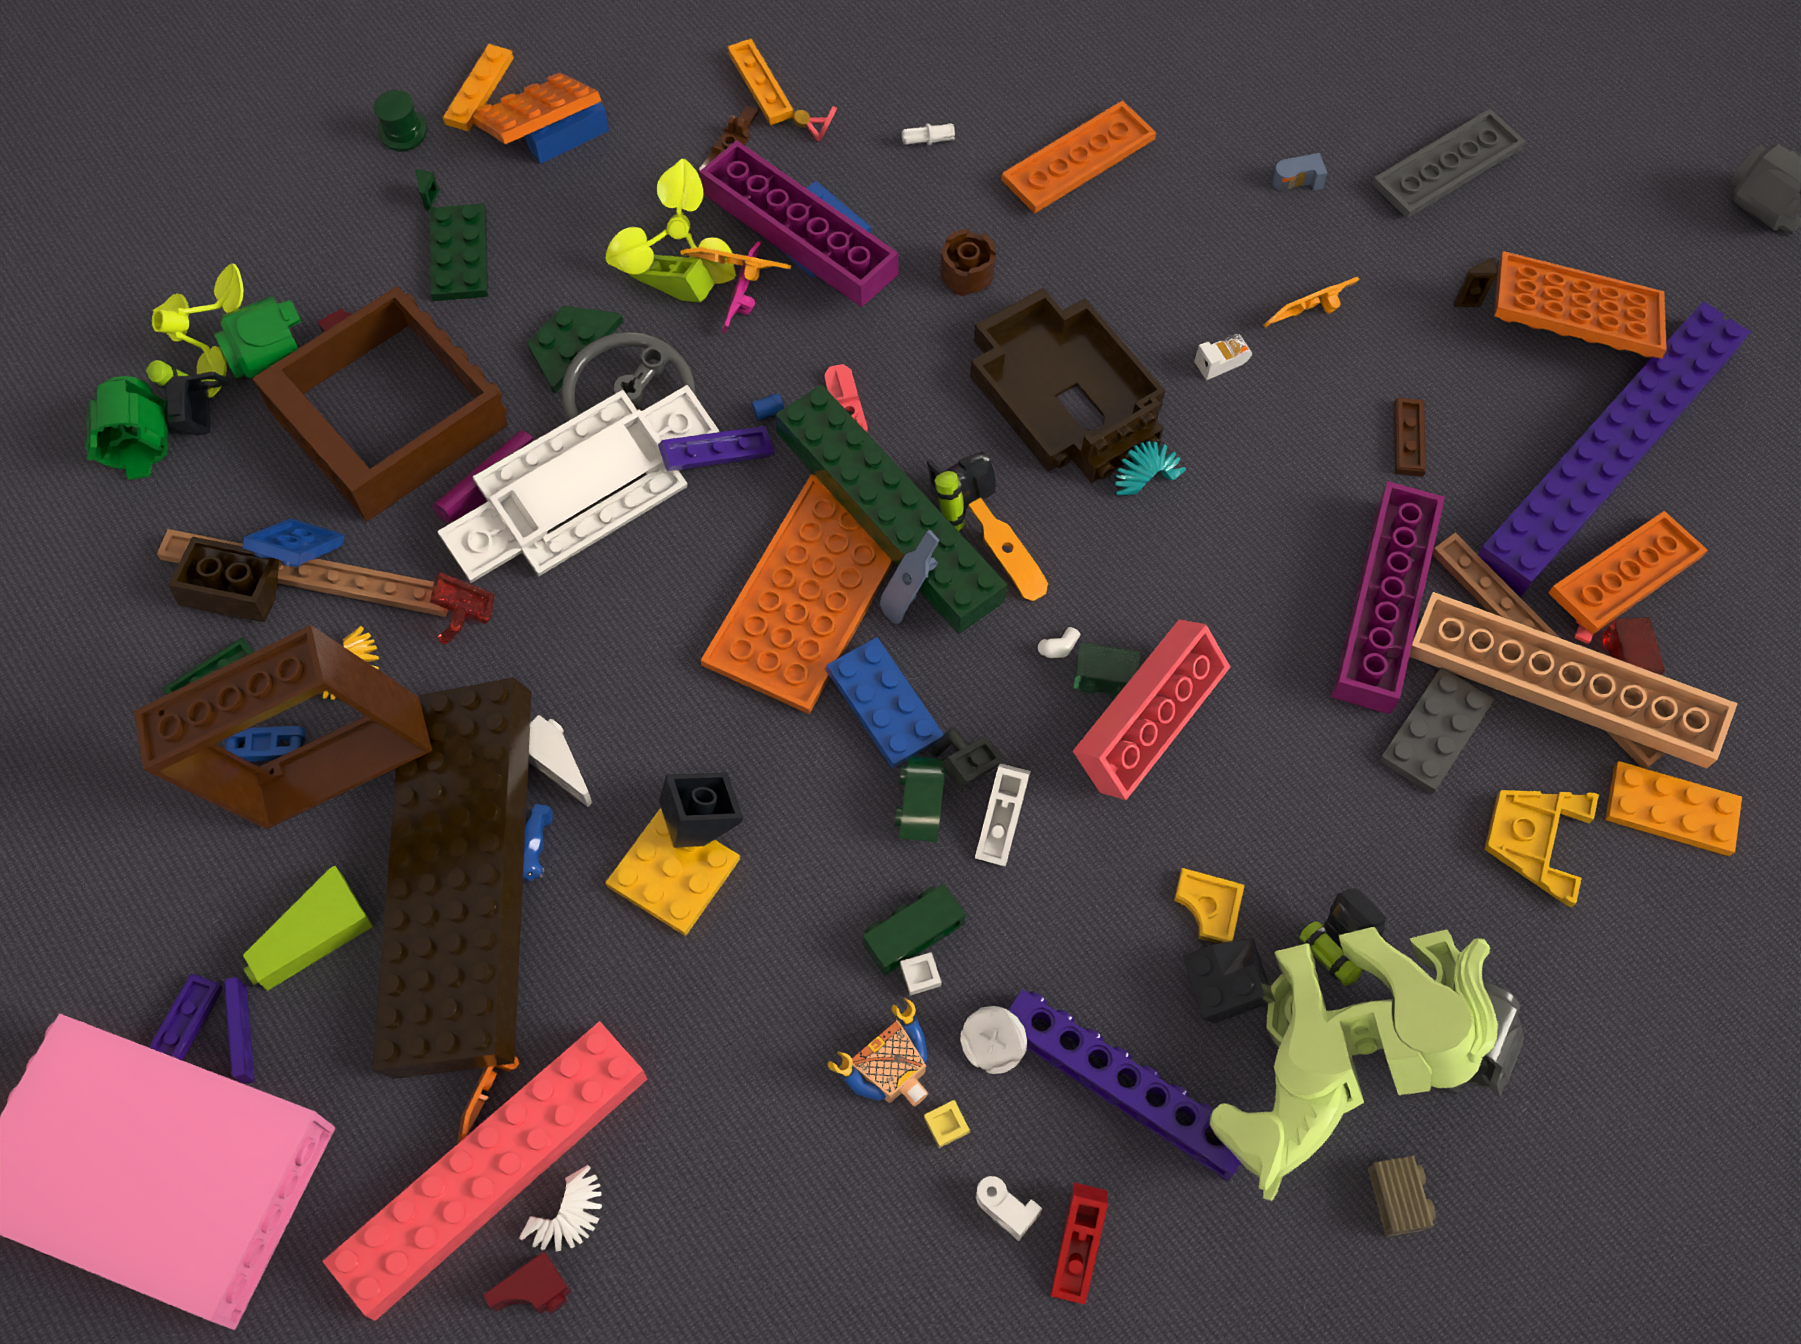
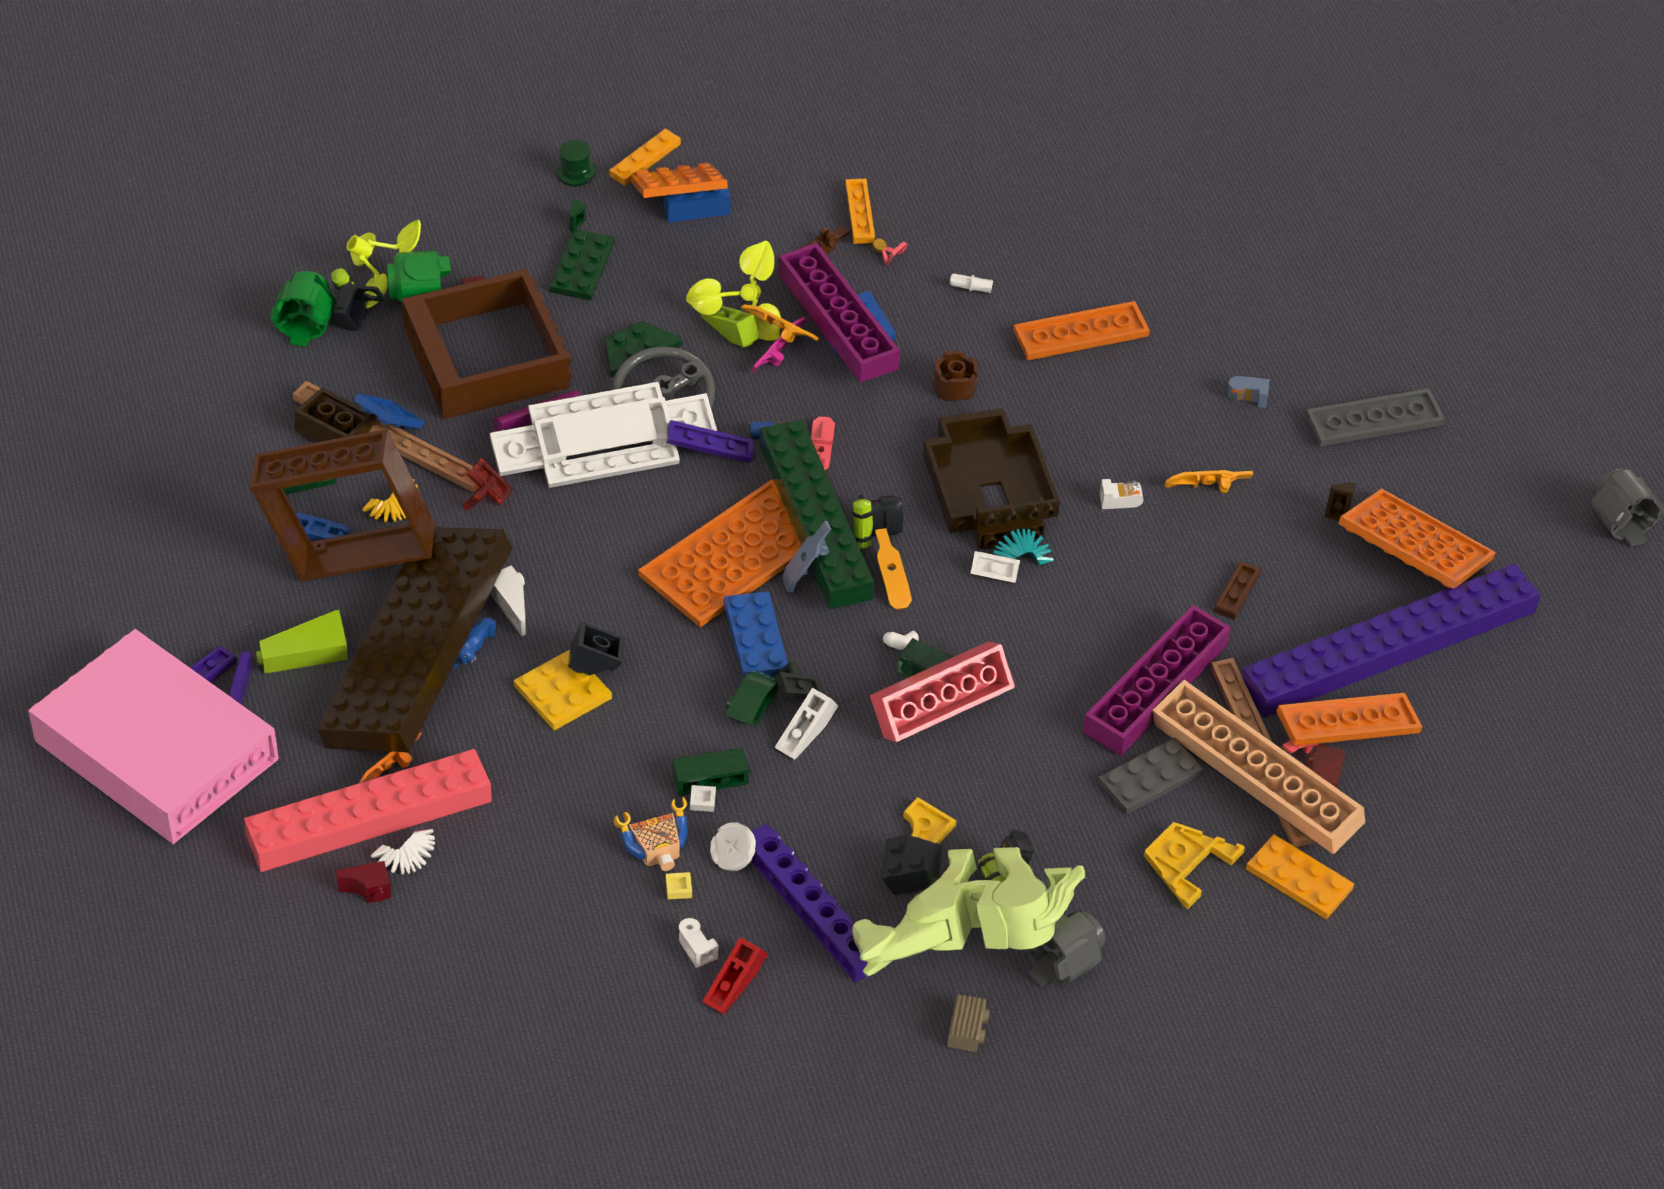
camera: 20 degrees right, 15 degrees down
(1127, 503) = (995, 566): none -> white plate

